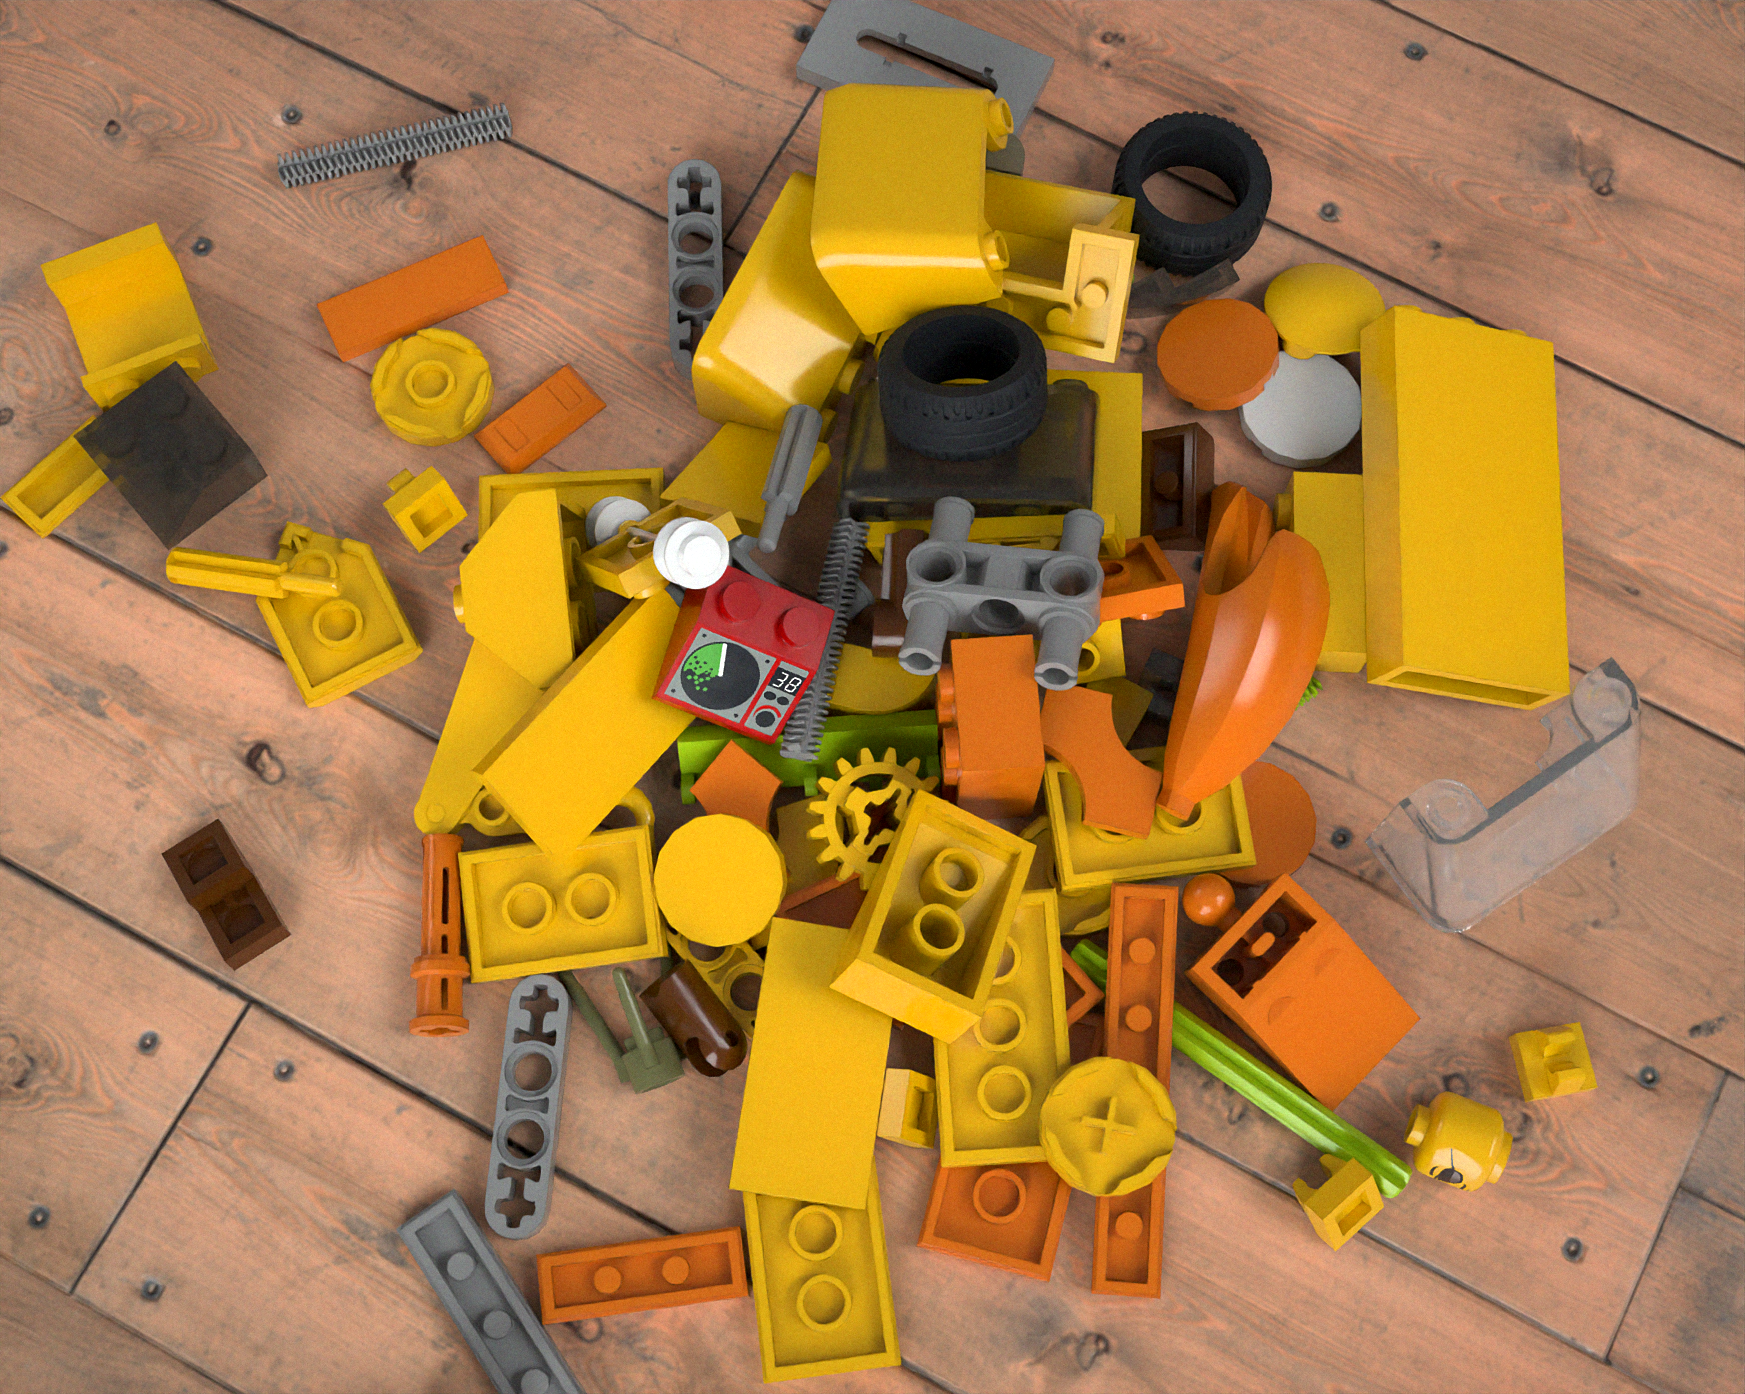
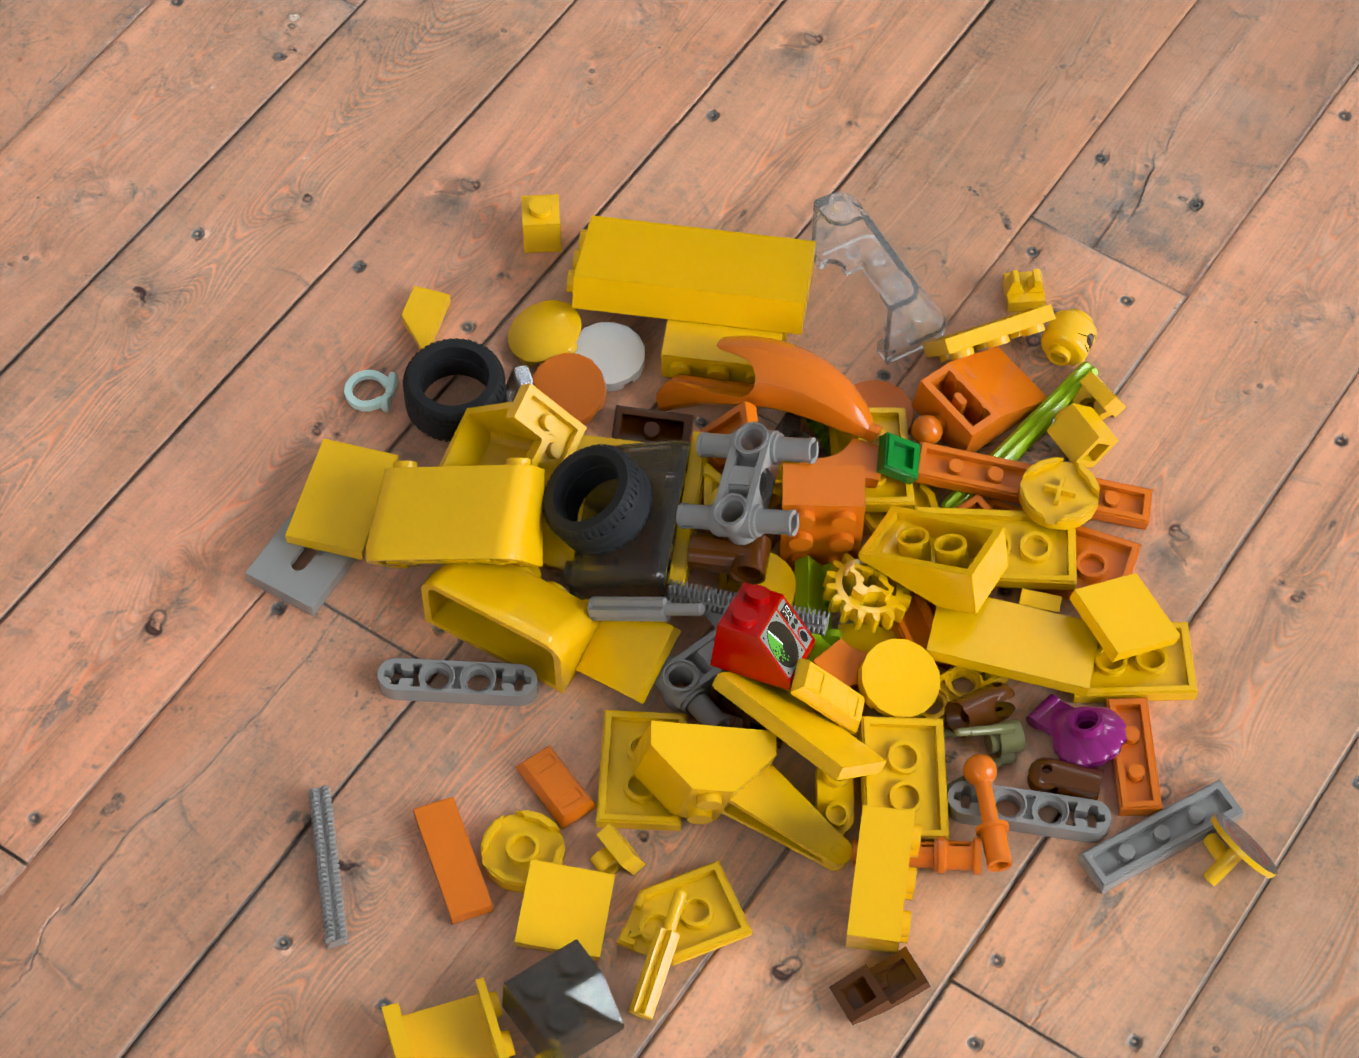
camera: 85 degrees left, 15 degrees down
(330, 446) = (564, 906): none -> yellow tile
(348, 867) = (883, 879): none -> yellow brick
(574, 1021) = (981, 772): none -> orange pin
(579, 1161) = (1064, 778): none -> reddish brown piece
(644, 552) = (691, 670): plate -> none
(659, 1188) = (1080, 734): none -> magenta animal
(662, 762) = (827, 695): none -> yellow tile
(870, 1245) = (1124, 617): none -> yellow tile
(970, 51) = (339, 499): none -> yellow tile
(1131, 849) = (898, 458): none -> green tile
(1166, 106) = (389, 383): none -> light aqua piece
(1246, 1166) = (1082, 434): none -> yellow brick
(1330, 145) = (425, 314): none -> yellow tile
(1428, 995) = (989, 334): none -> yellow plate
(1531, 277) = (541, 223): none -> yellow brick

